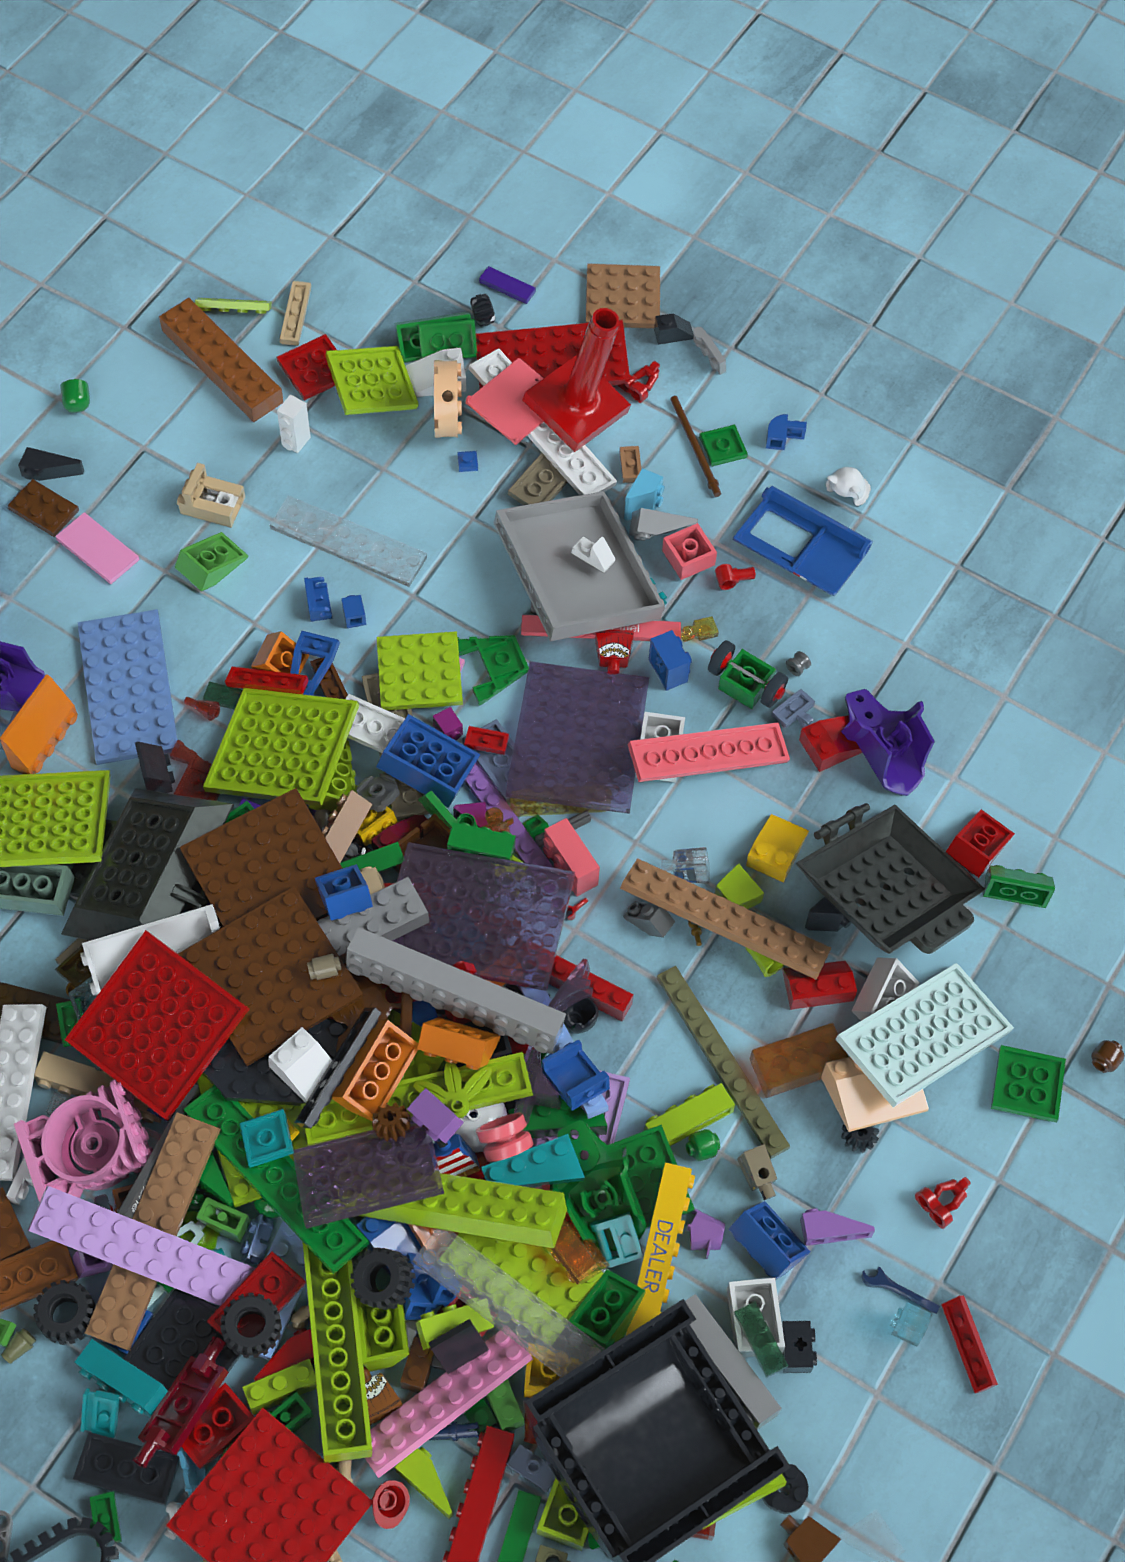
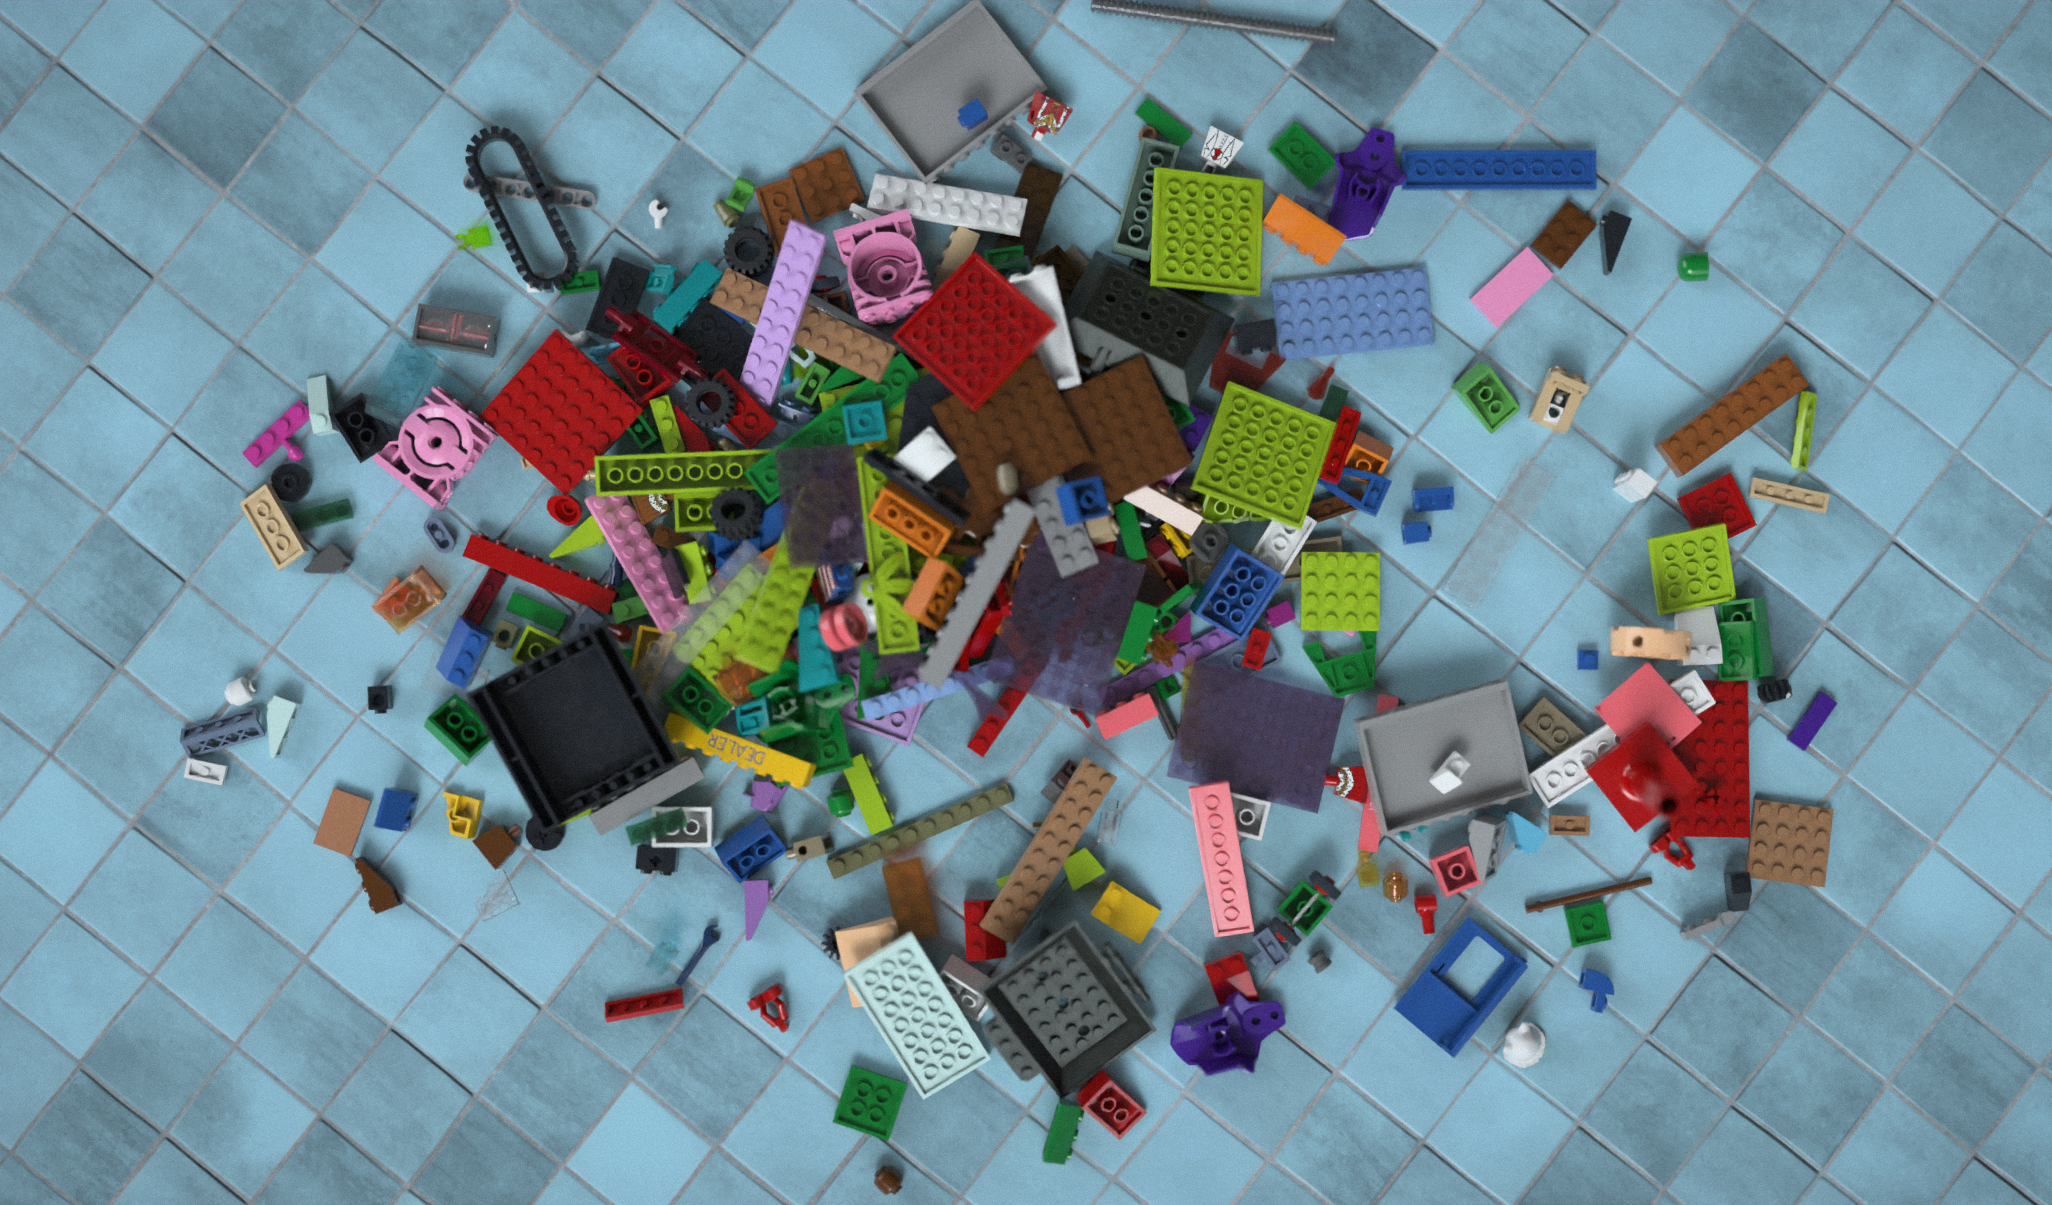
camera: 95 degrees right, 25 degrees up
(17, 1433) = (657, 214): none -> white piece
(391, 1122) = (858, 521): reddish brown gear -> none
(435, 1116) = (860, 566): medium lavender brick -> none
(574, 1075) = (897, 694): blue panel -> none
(581, 1016) = (966, 709): black hair -> none
(669, 659) = (1329, 835): blue brick -> none
(713, 603) = (1395, 886): none -> clear orange head

